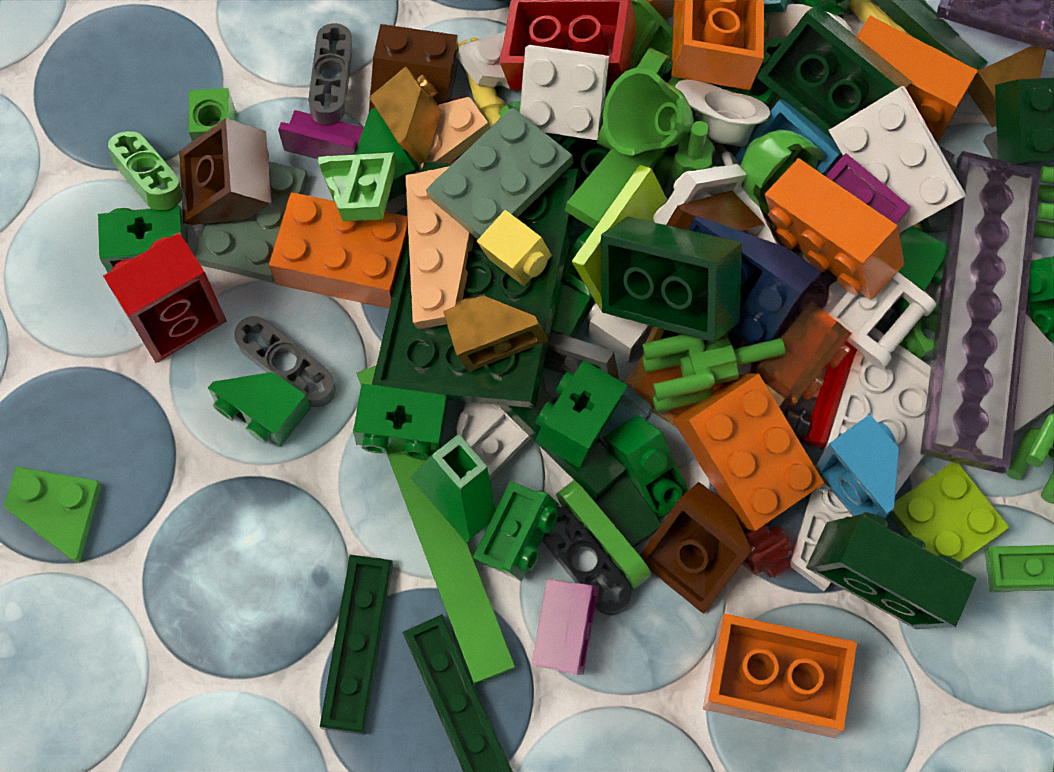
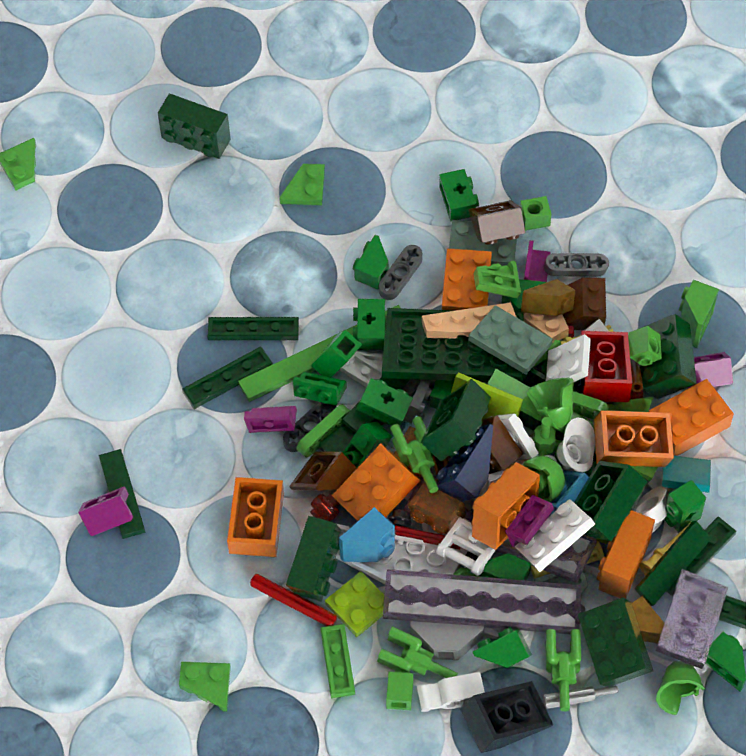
camera: 85 degrees right, 10 degrees down
(145, 182) = (493, 193): bright green beam -> none
(166, 296) = (417, 203): red brick -> none
(490, 331) = (416, 344): pearl gold slope -> none
(515, 248) = (466, 350): light yellow brick -> none
(927, 645) = (293, 600): none -> red axle

